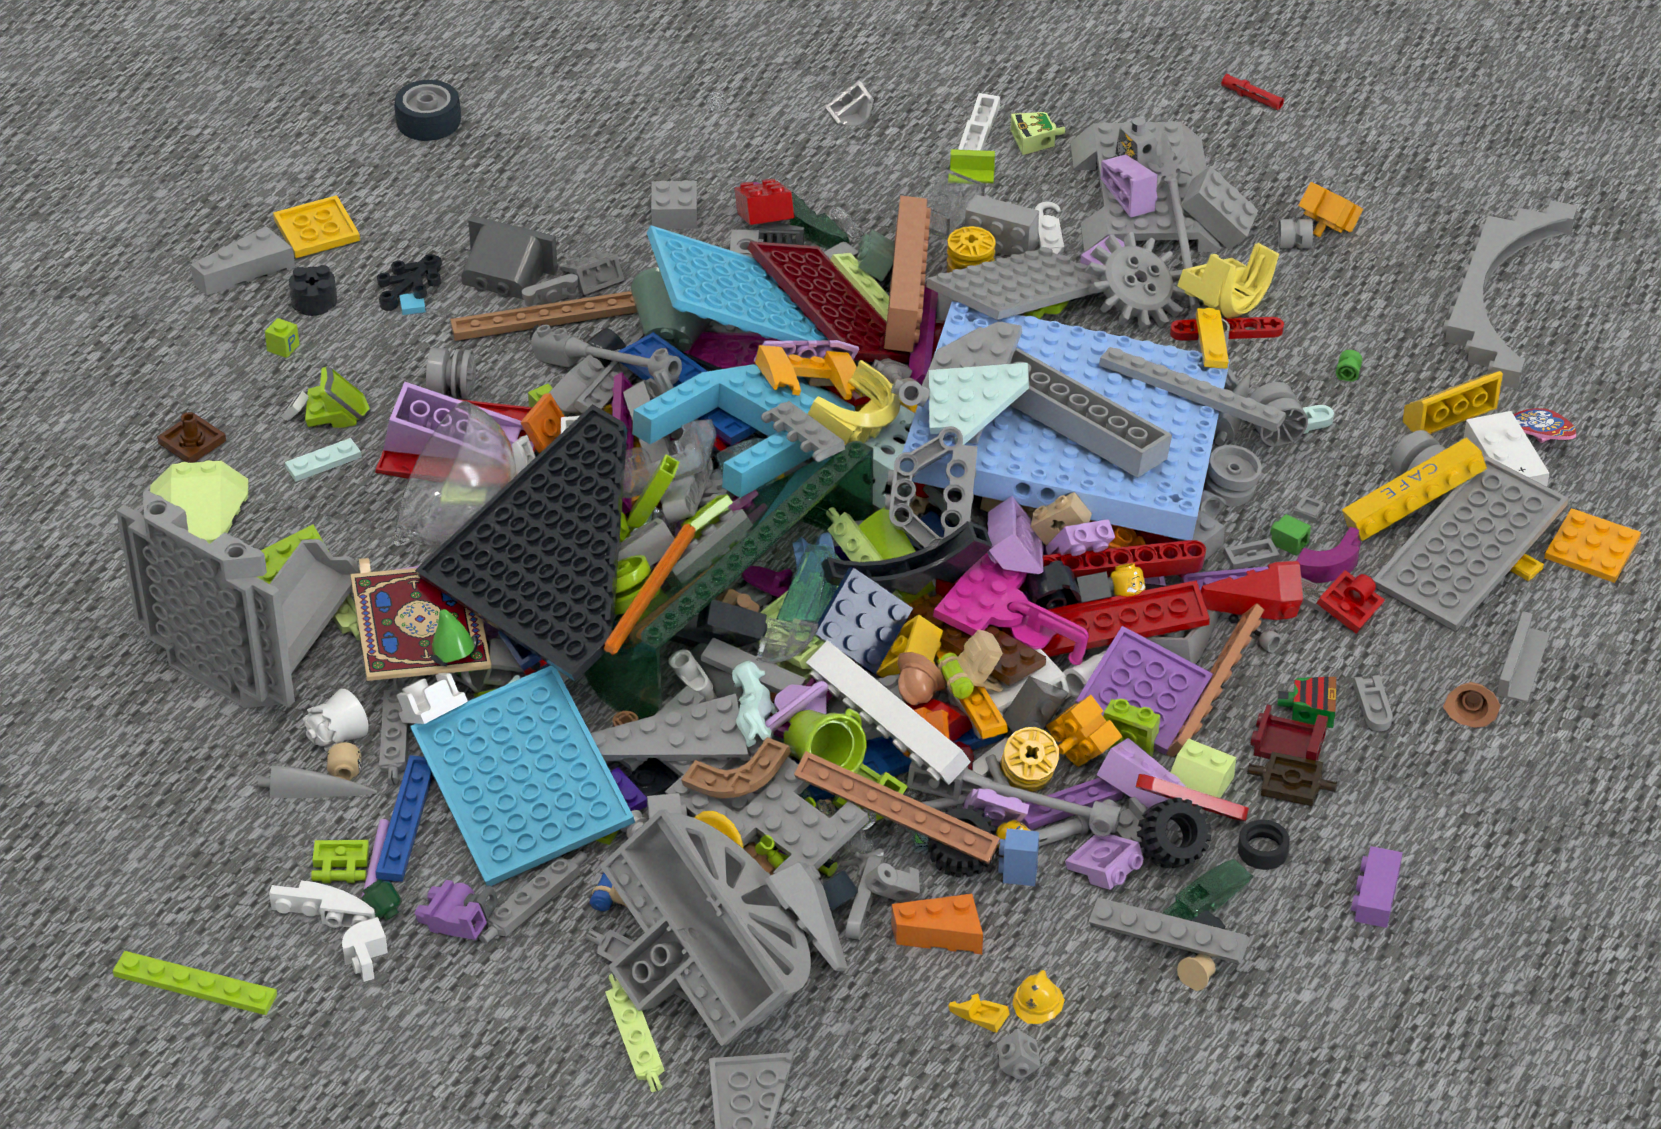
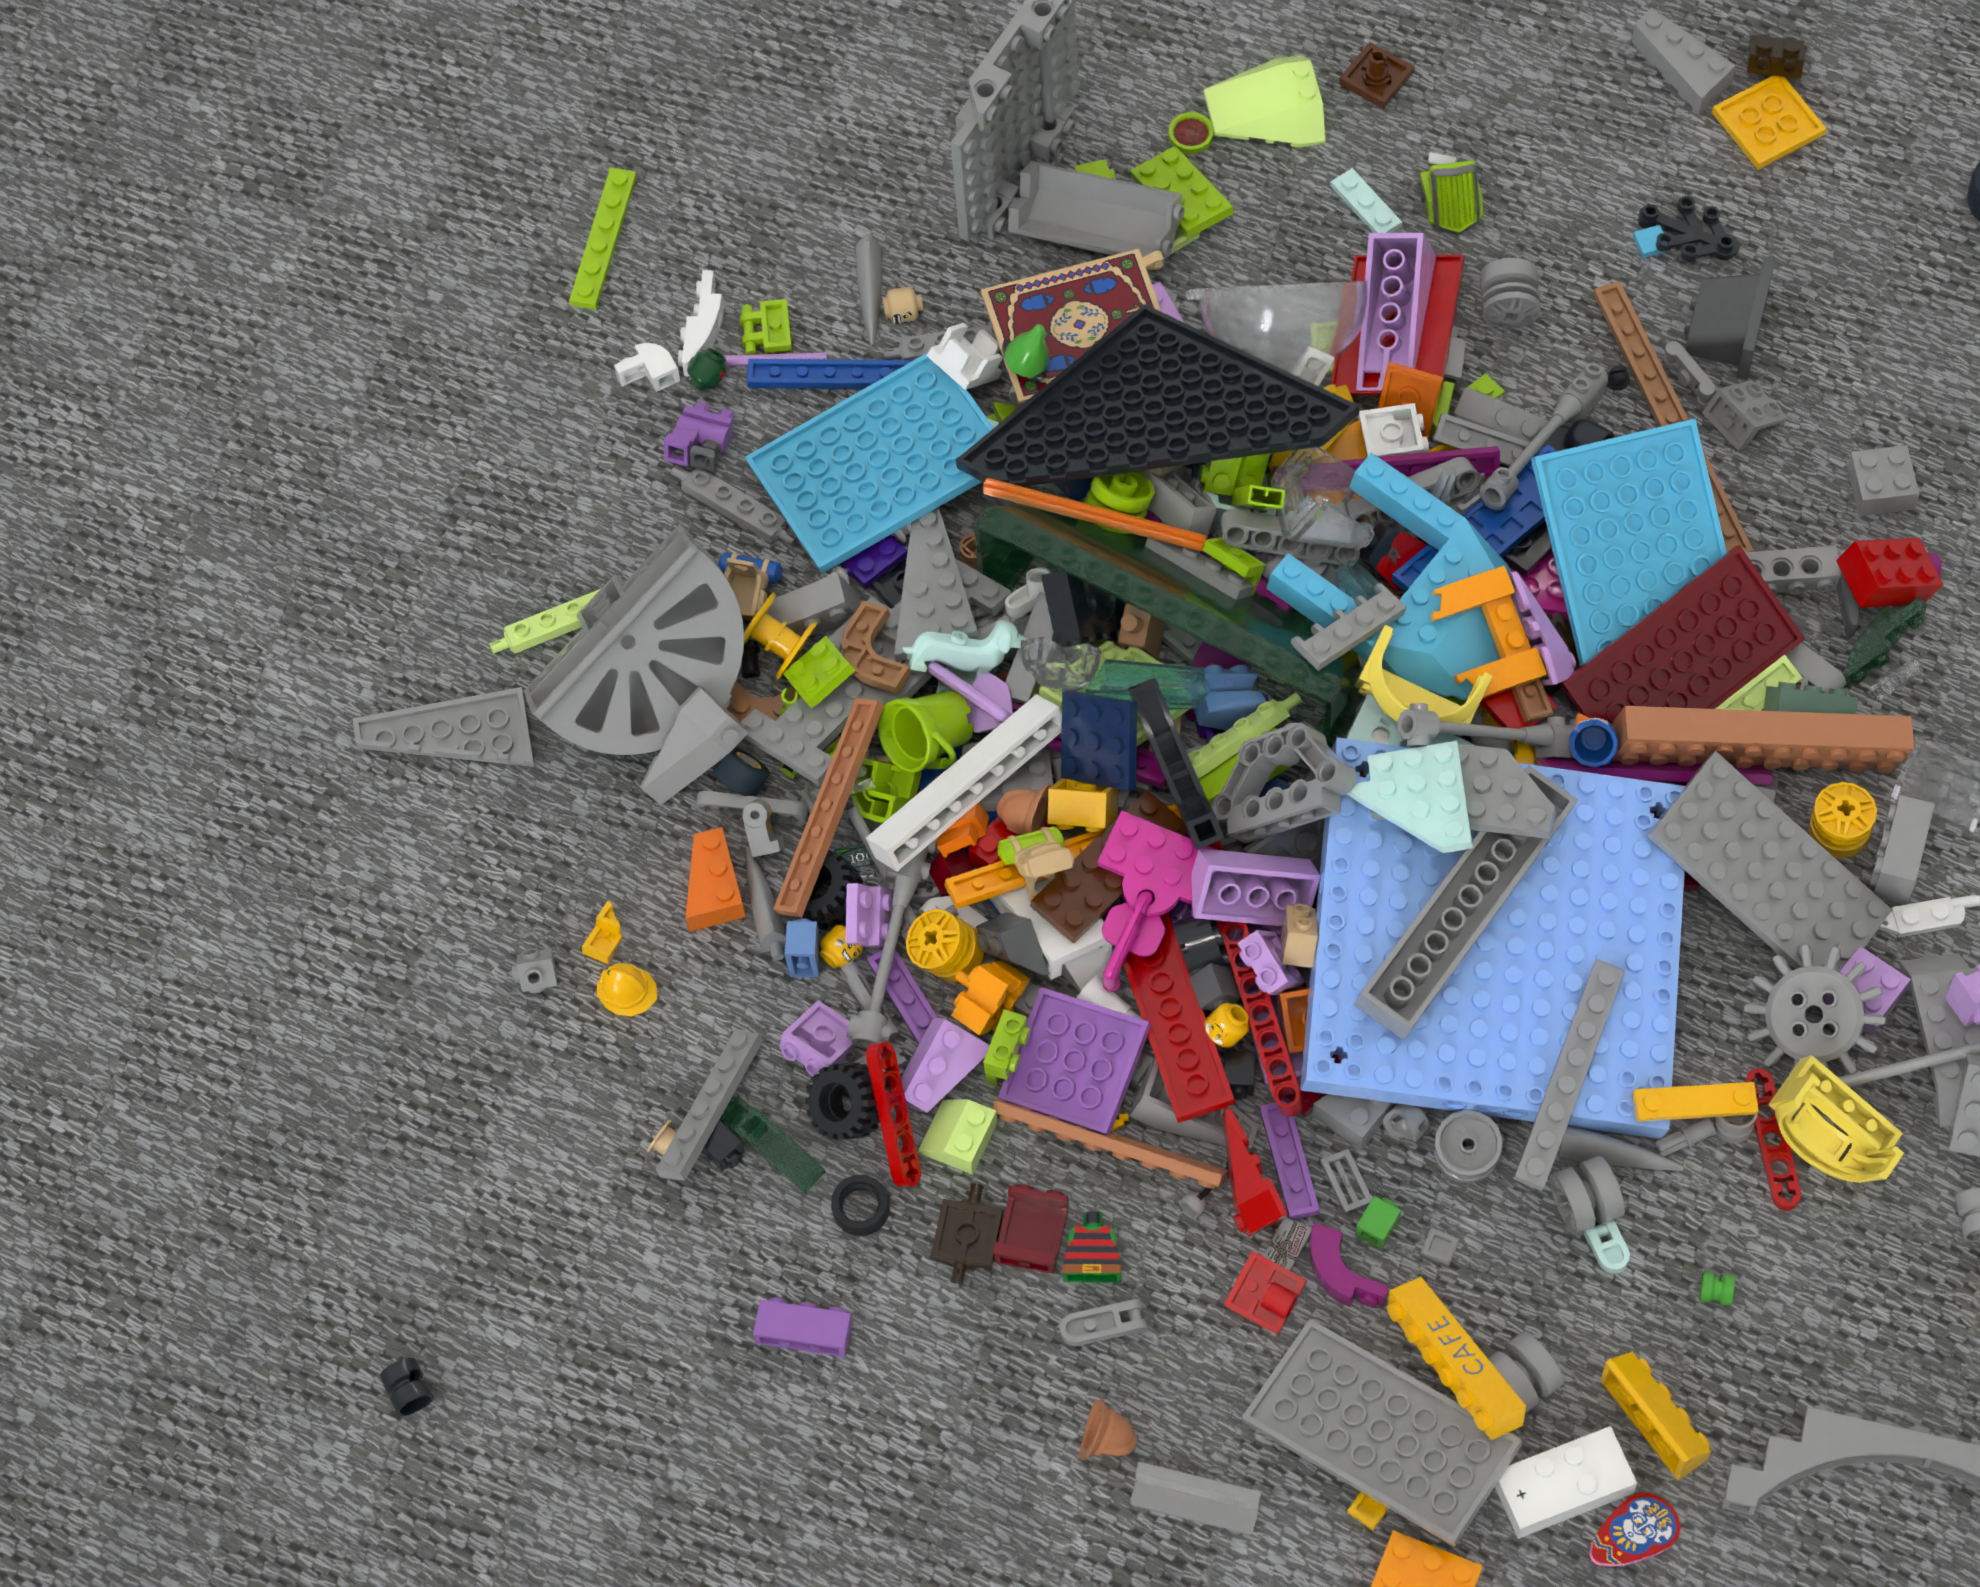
camera: 90 degrees right, 20 degrees up
(257, 211) = (1775, 56): none -> dark brown plate
(282, 337) = (1554, 123): lime brick -> none
(313, 290) = (1643, 136): black brick -> none
(336, 720) = (943, 279): white hat -> none
(753, 809) = (819, 672): none -> lime plate
(907, 341) = (1593, 741): none -> blue piece
(986, 890) = (767, 921): none -> light grey piece

